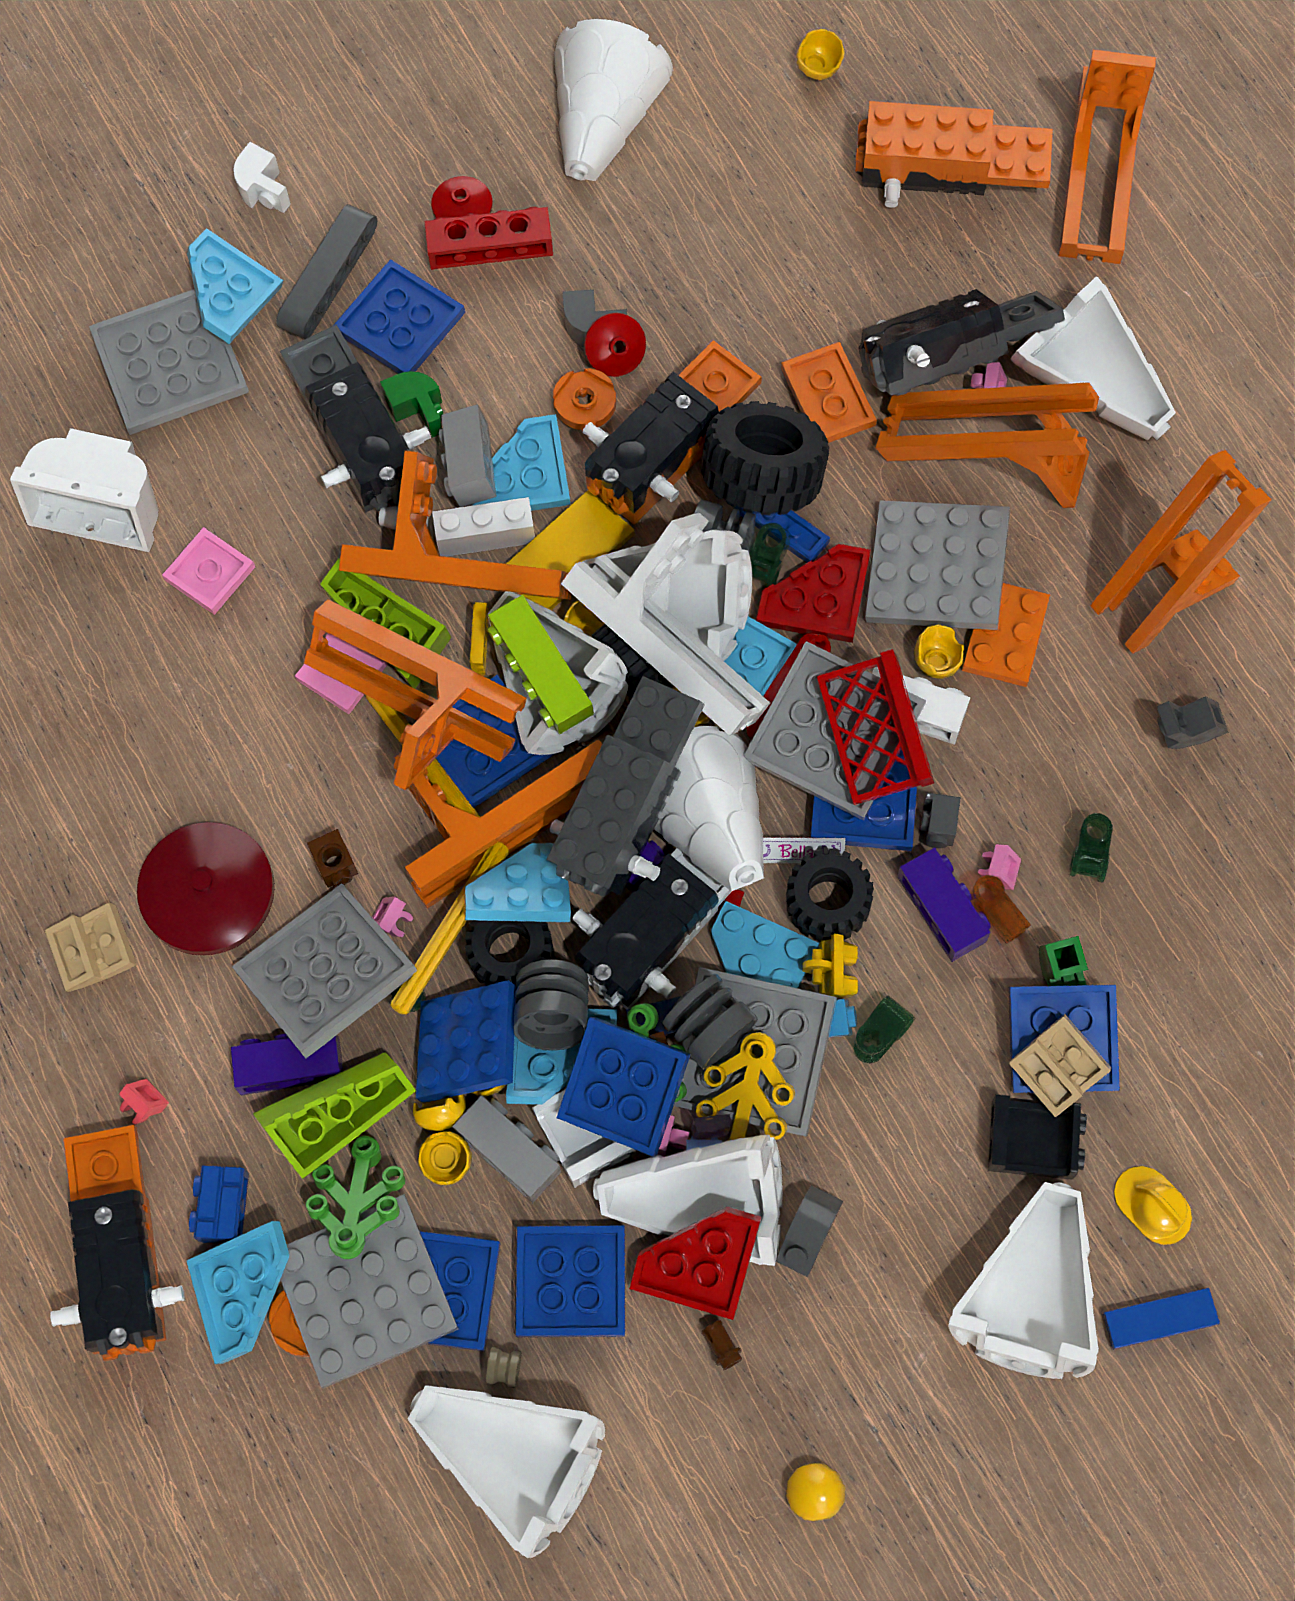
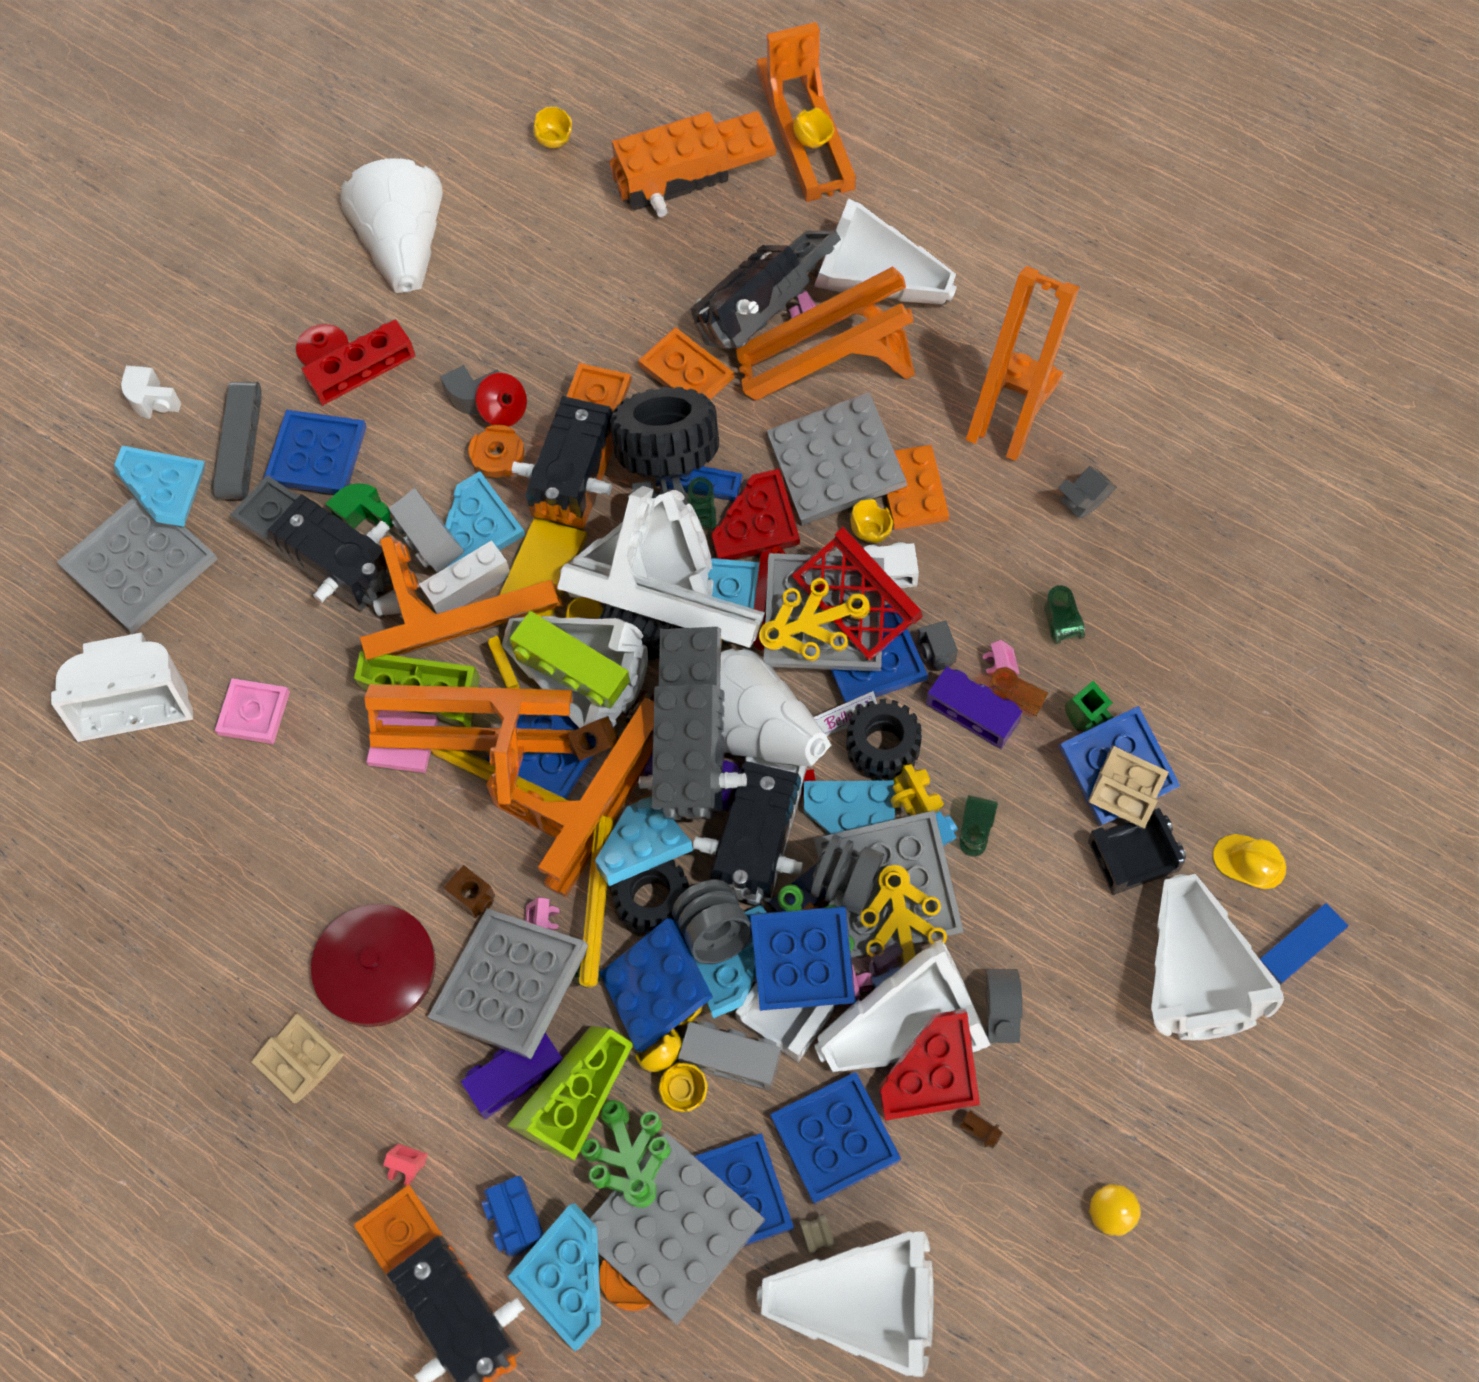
camera: 25 degrees left, 5 degrees down
(538, 755) = (603, 732): none -> reddish brown brick
(808, 735) = (809, 622): none -> yellow plant
(1102, 175) = (813, 128): none -> yellow hair

